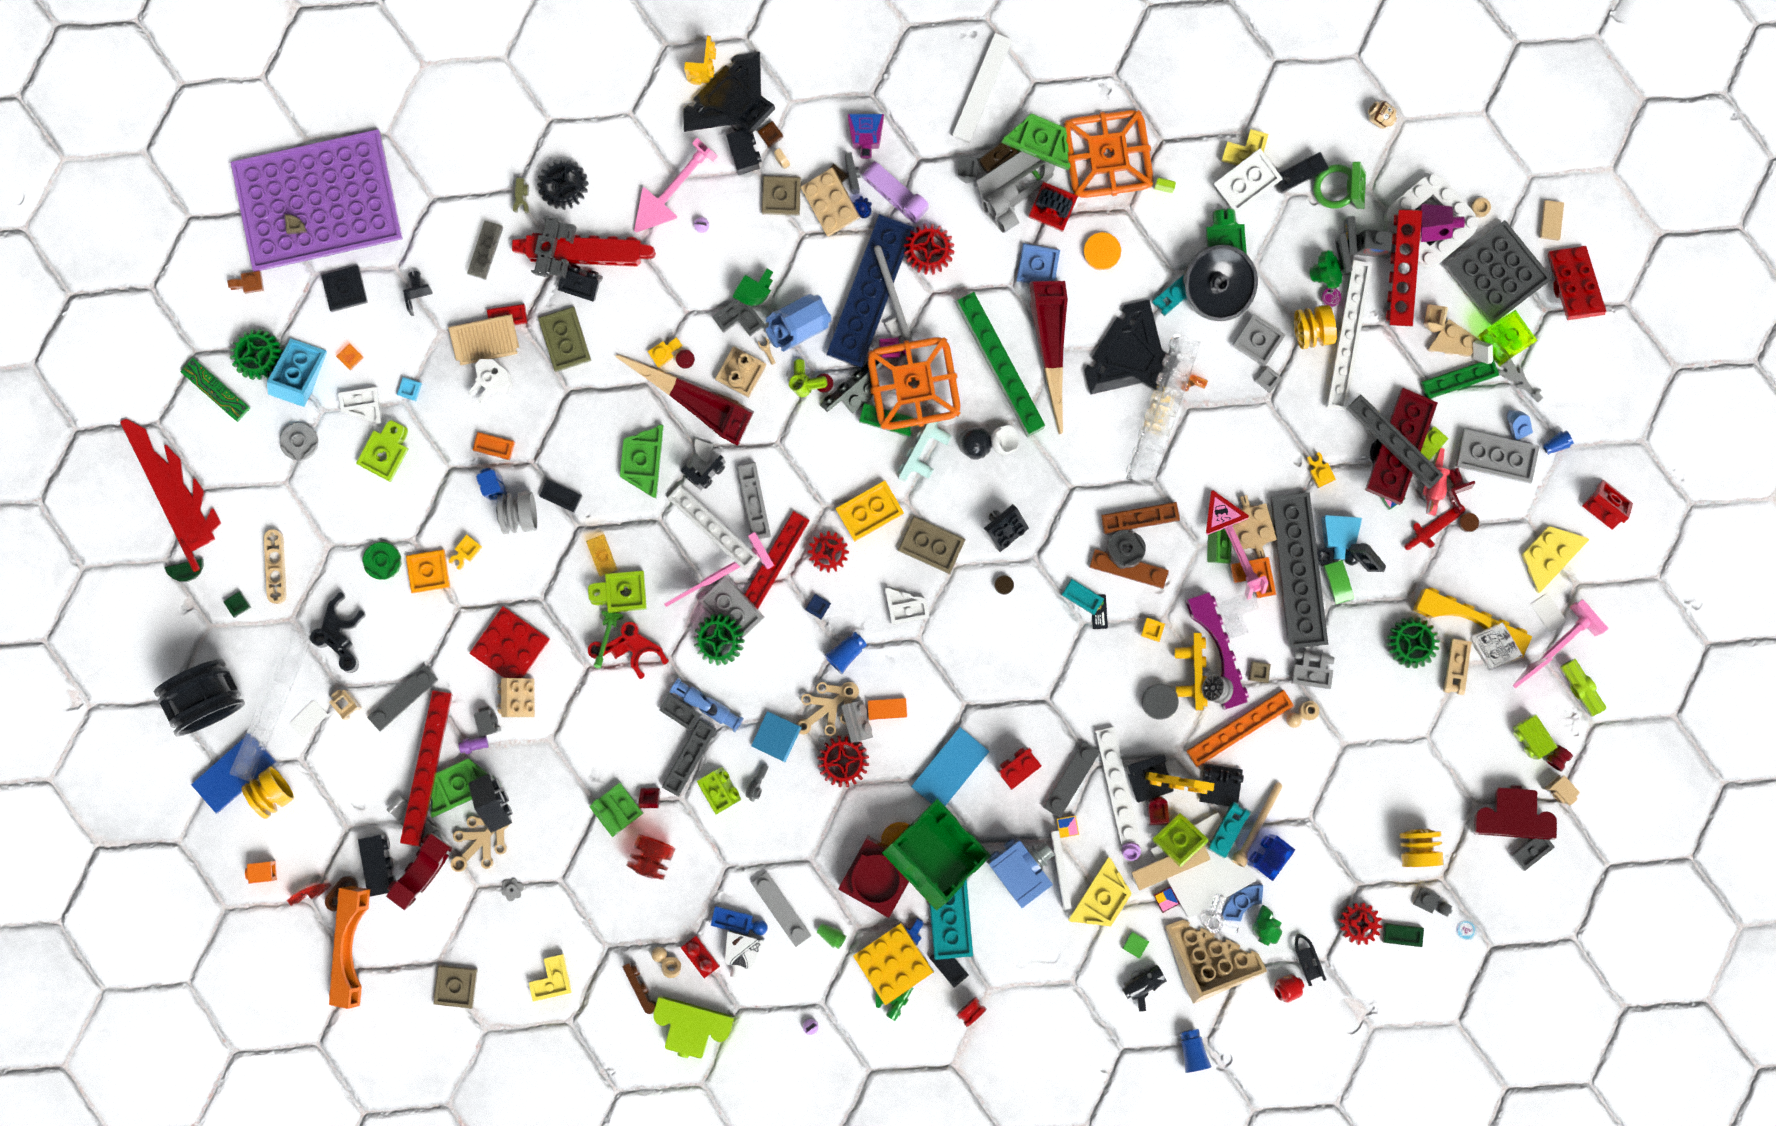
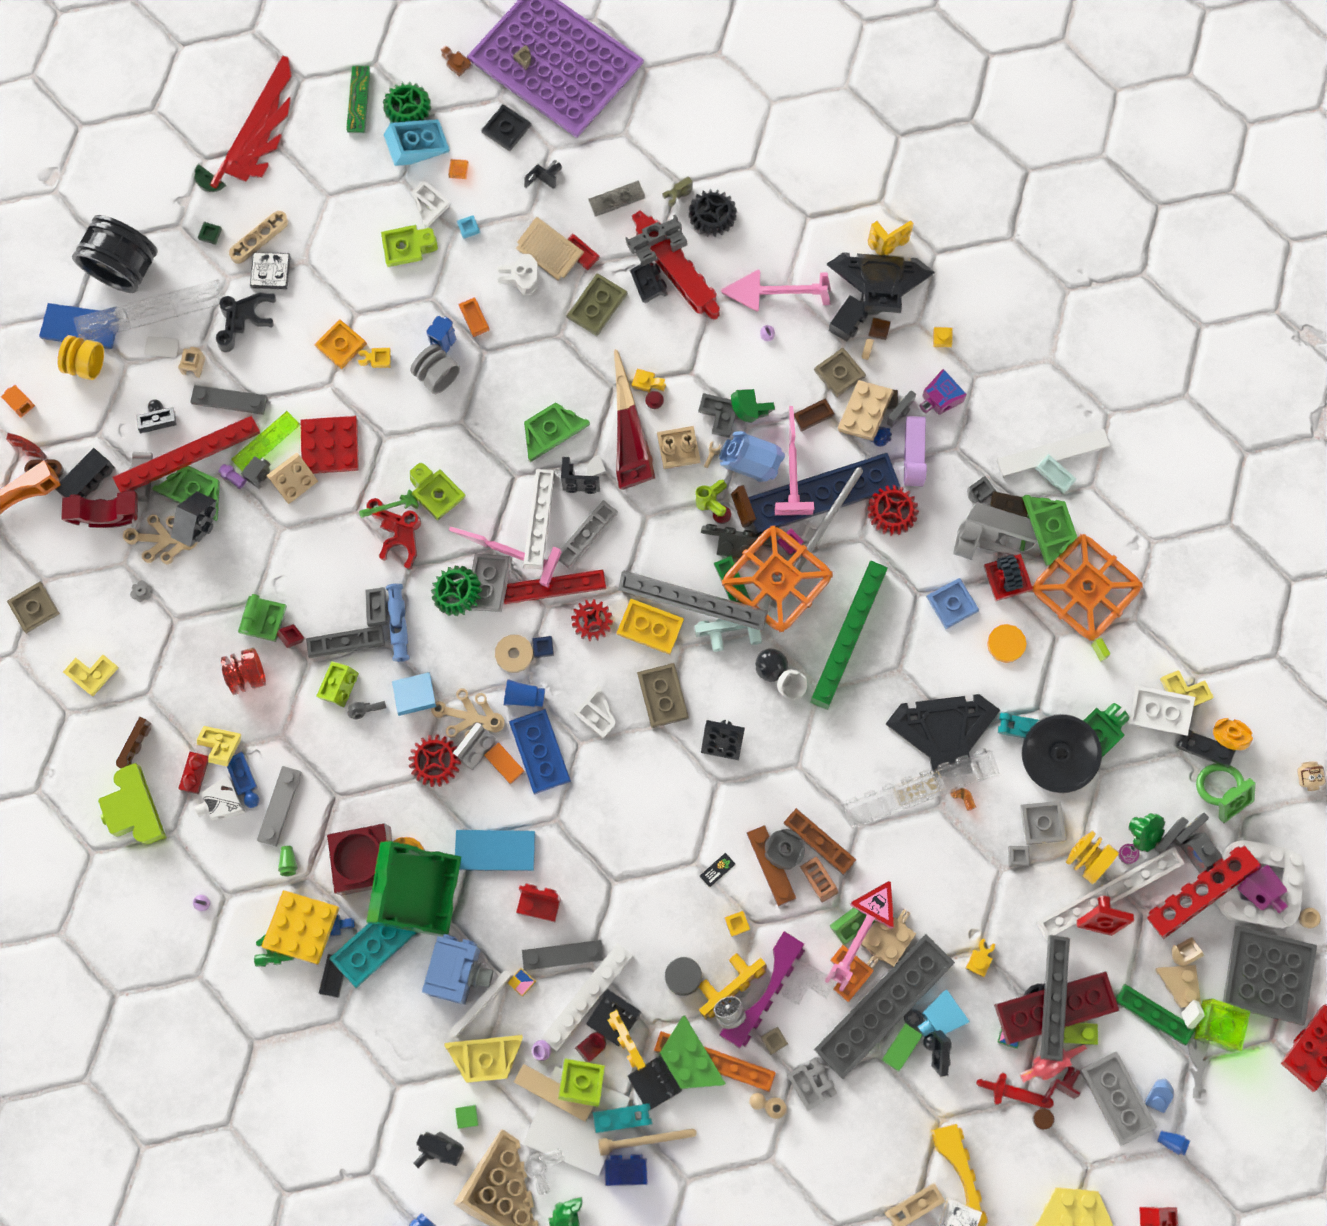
camera: 55 degrees right, 10 degrees down
(299, 441) = (366, 183): light grey tile -> none
(313, 579) = (270, 270): none -> tile
(371, 769) = (156, 418): none -> plate
(382, 560) = (322, 306): green tile -> none
(464, 695) = (266, 440): none -> clear neon green plate
(560, 496) = (474, 393): black tile -> none
(602, 555) = (453, 456): clear yellow plate -> none
(660, 955) = (171, 740): tan plate -> none
(697, 916) = (223, 744): none -> light yellow plate
(799, 245) = (813, 415): none -> reddish brown tile
(799, 623) = (511, 642): none -> tan tile
(818, 91) = (942, 337): none -> yellow plate
(831, 361) = (743, 506): none -> reddish brown tile
(864, 321) = (793, 506): none -> bright pink piece
(877, 462) = (693, 600): none -> plate
(899, 674) = (539, 751): none -> blue tile
(971, 1012) = (308, 1021): red wheel -> none
(1001, 100) = (1055, 474): none -> light aqua tile
(1004, 585) = (677, 776): dark brown tile -> none
(1049, 317) = (921, 640): dark red plate -> none
(1082, 597) = (718, 846): teal tile -> none
(1166, 899) = (524, 1112): tile -> none
(1184, 542) = (827, 894): none -> nougat slope
(1225, 746) = (689, 1059): none -> bright green wing
(1241, 901) = (571, 1178): medium blue tile -> none
(1307, 144) = (1232, 734): none -> light orange tile
(1366, 357) = (1104, 918): none -> red tile
(1420, 646) = (902, 1141): green gear -> none

